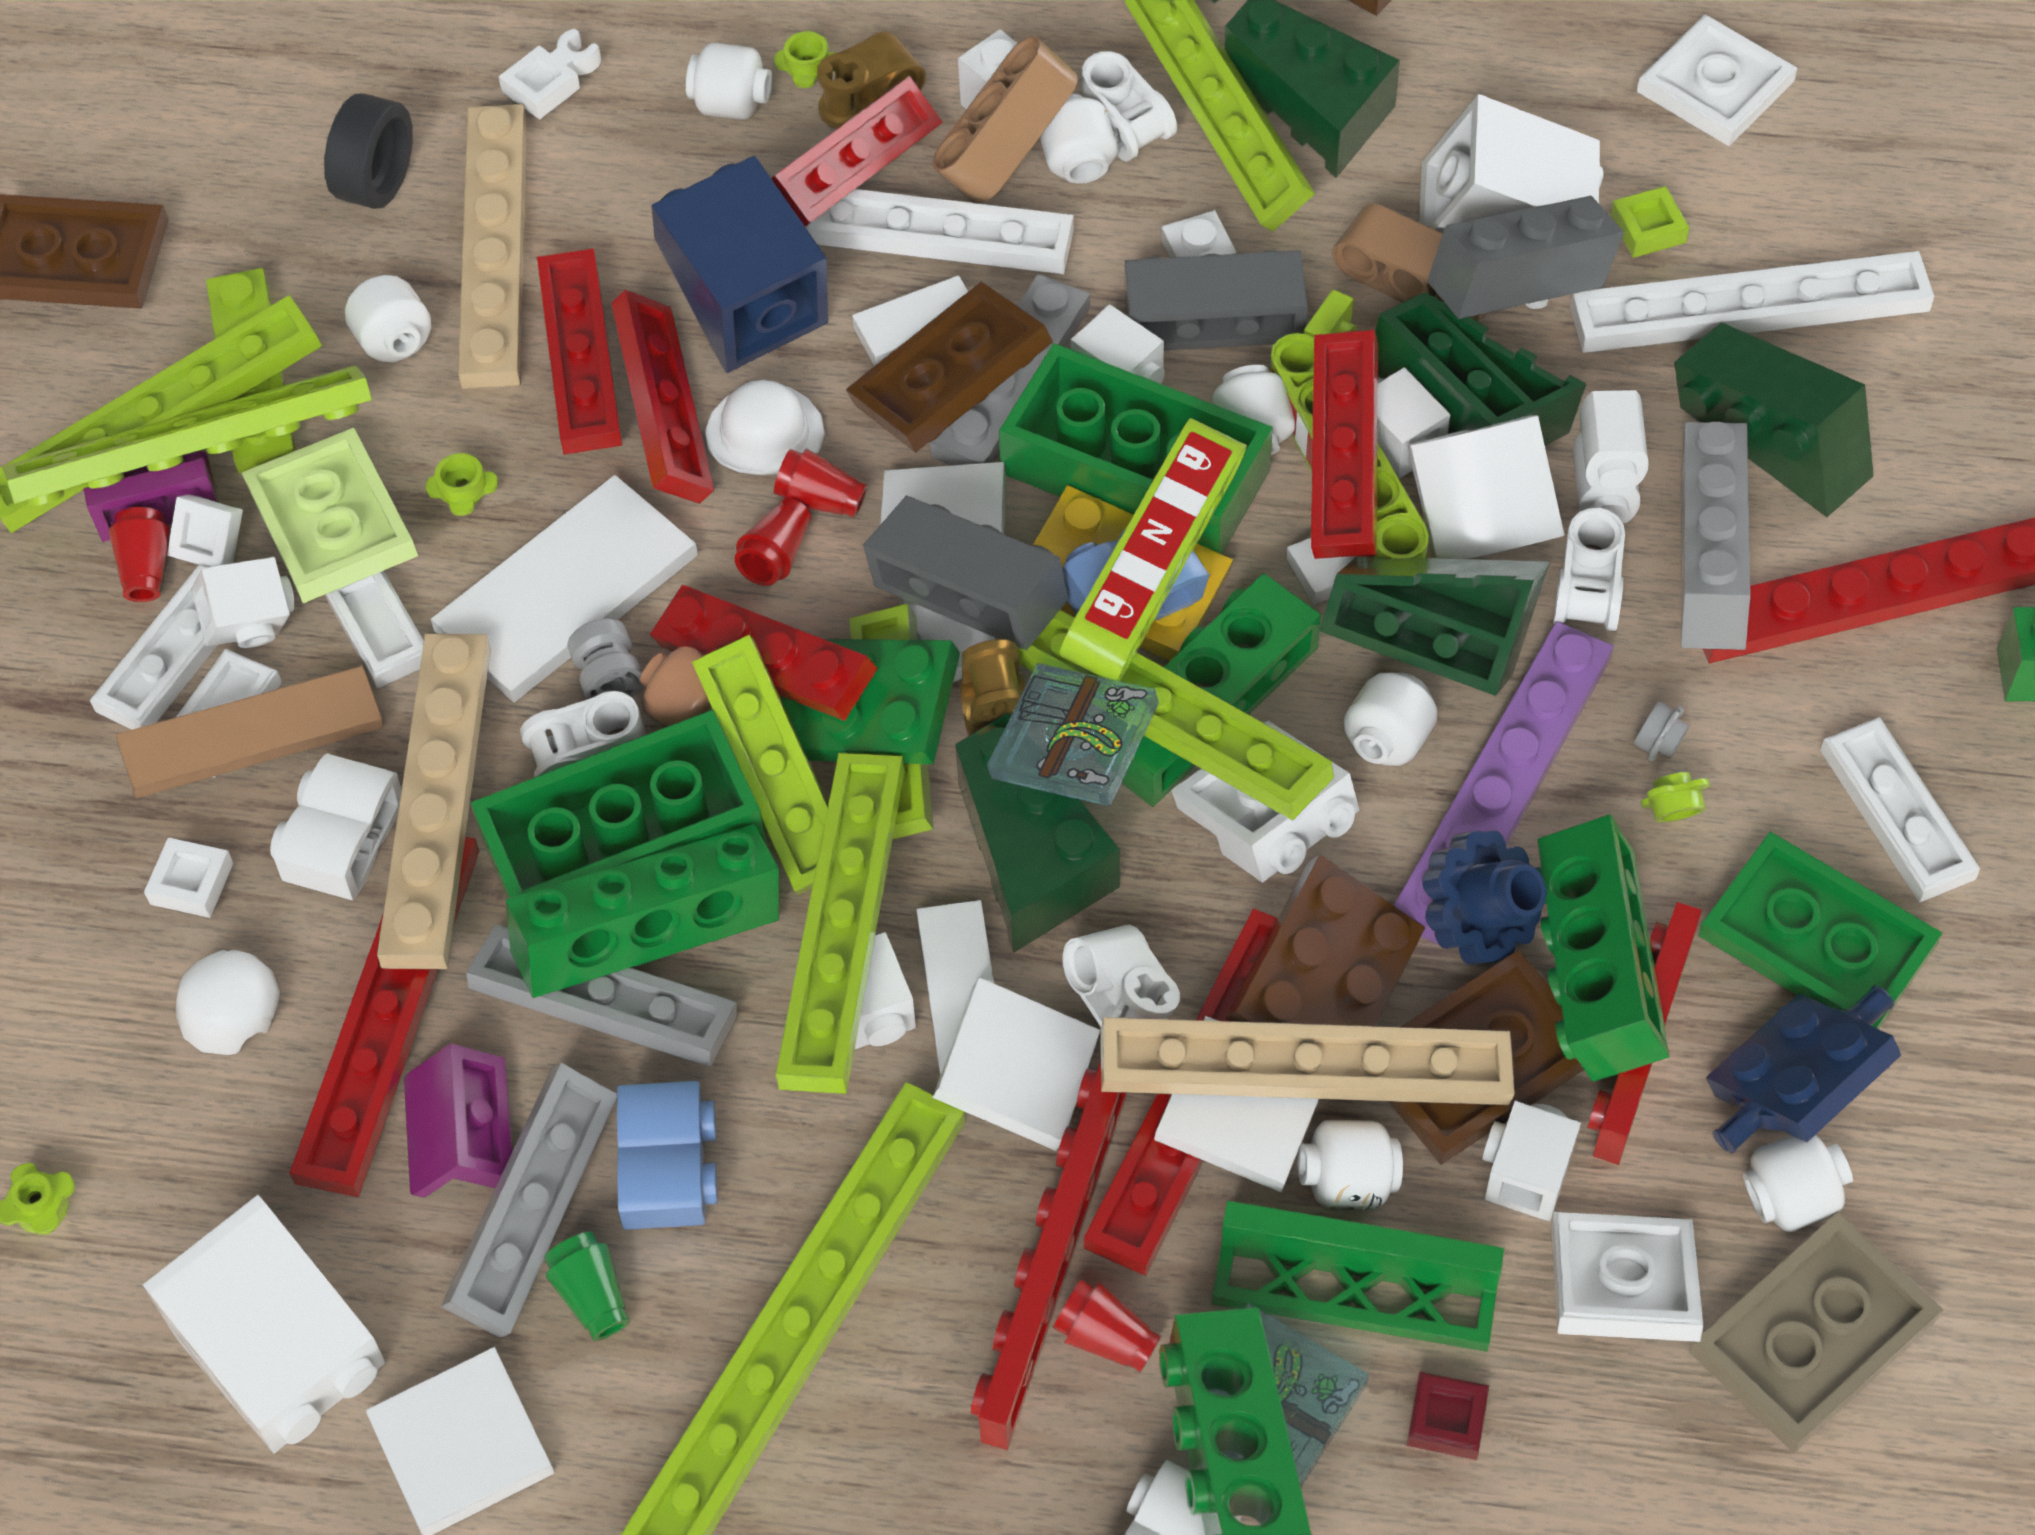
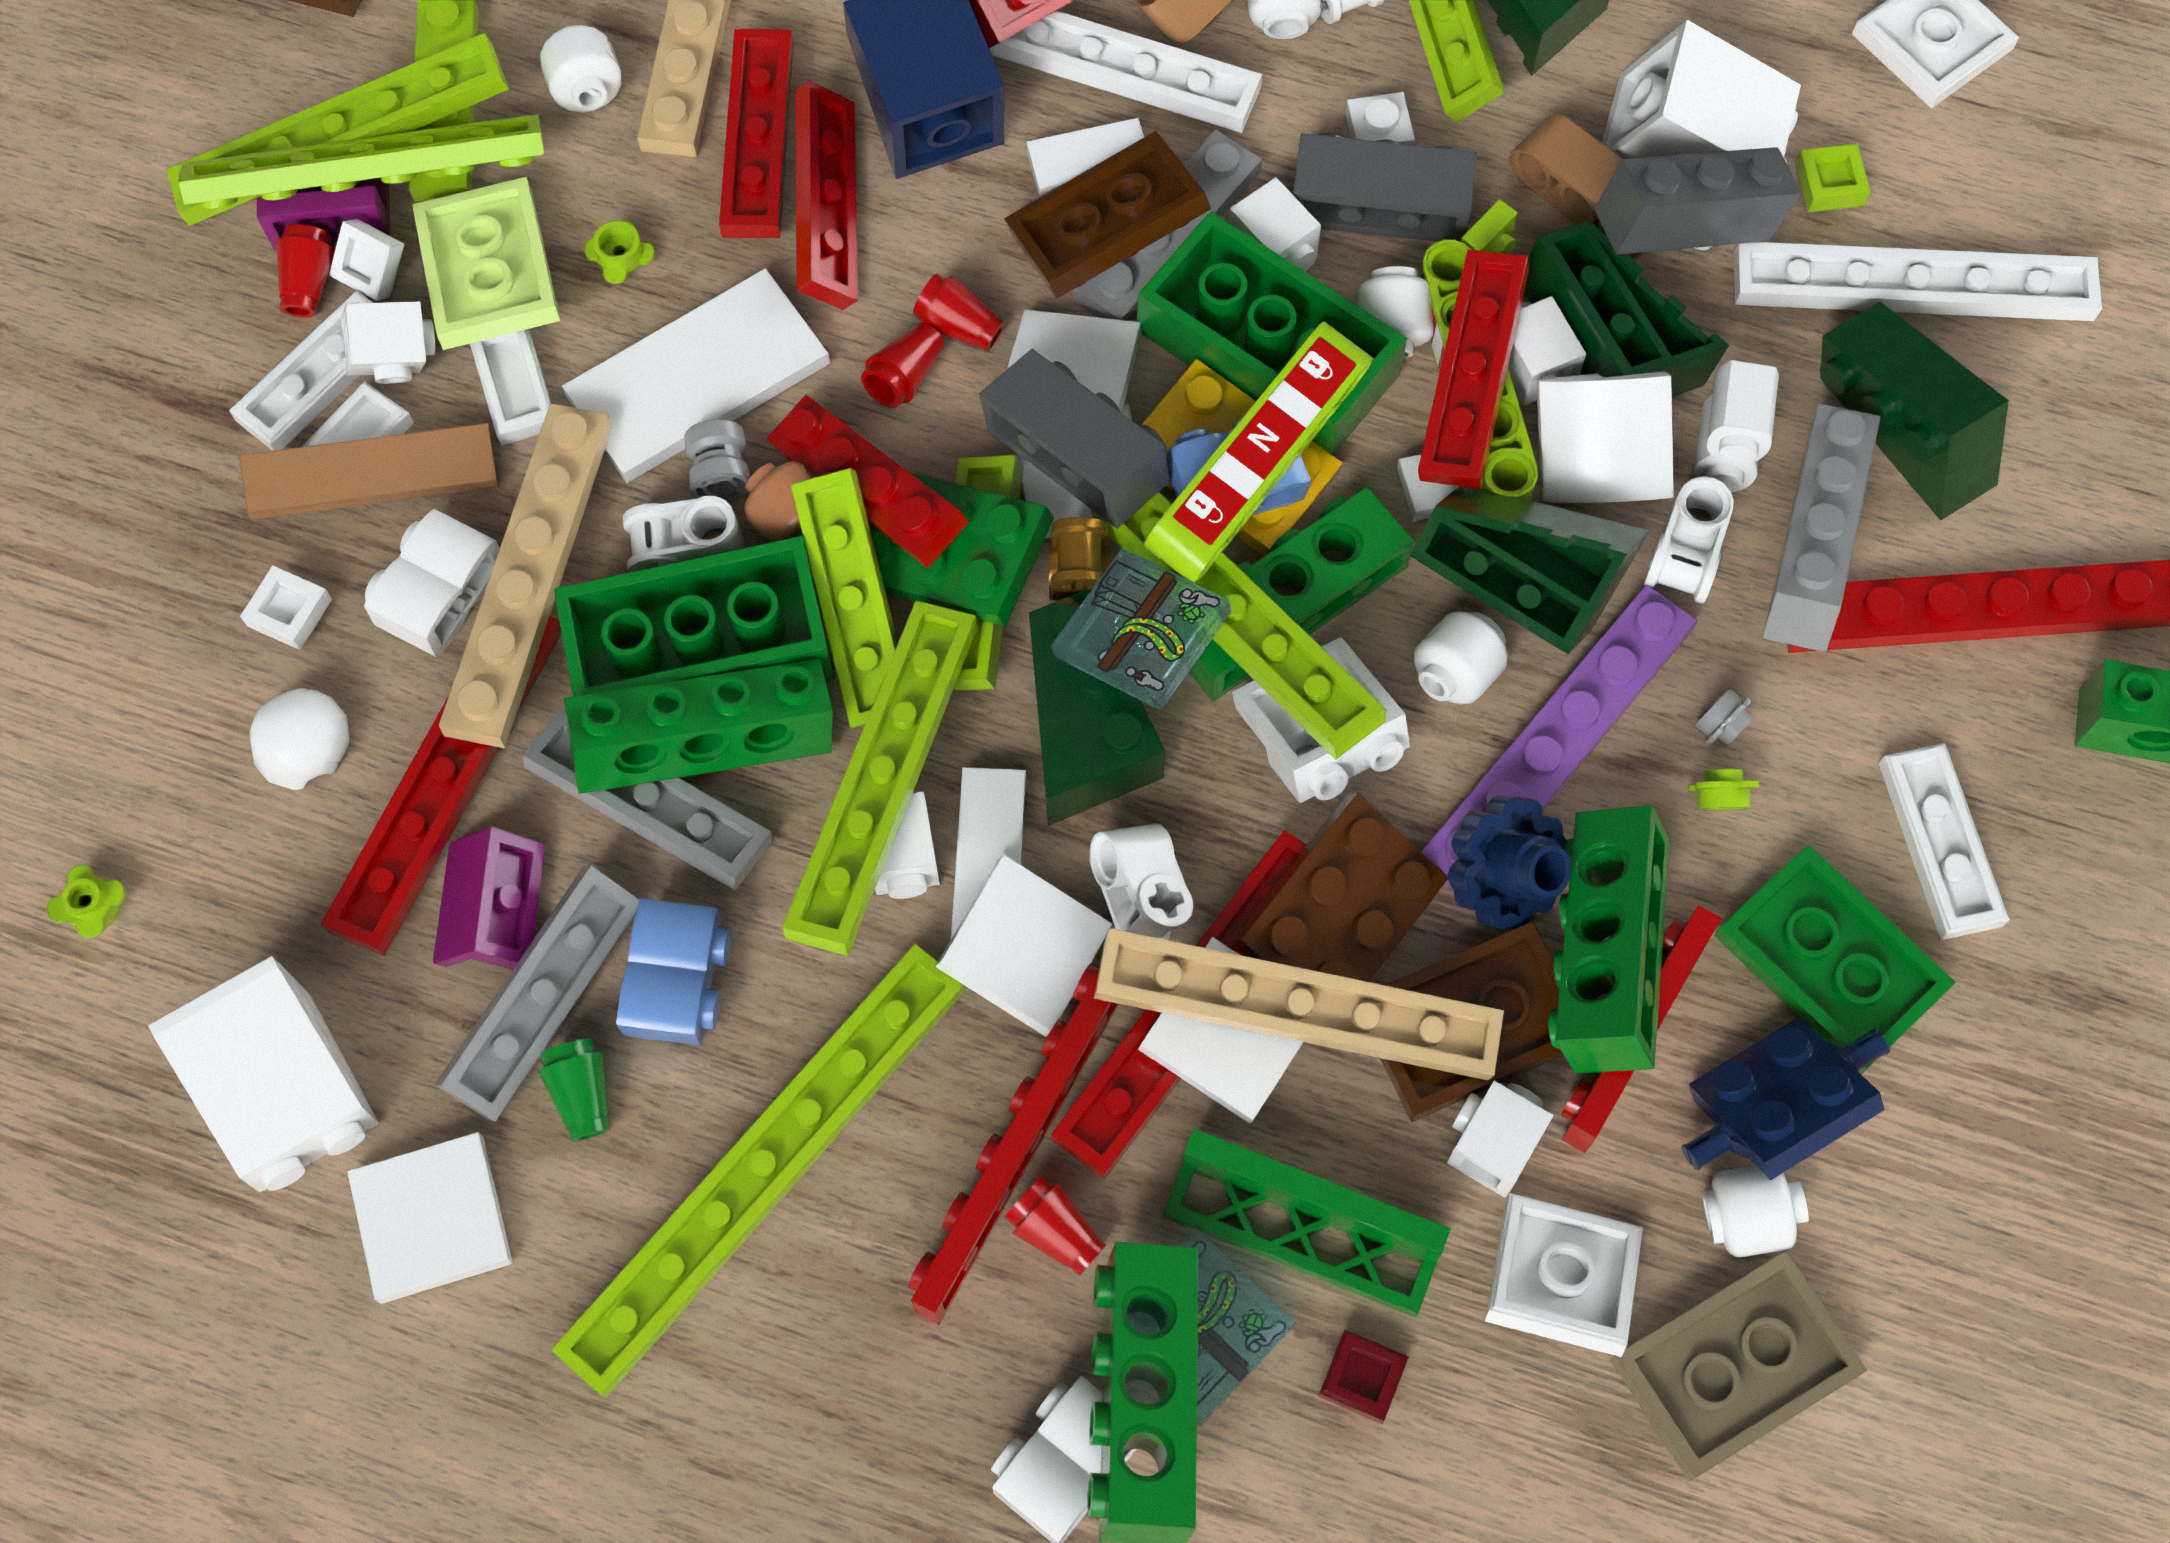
camera: 10 degrees right, 10 degrees up
(760, 425) = (917, 240): white hat -> none
(1351, 1164) = (1323, 1109): white head -> none

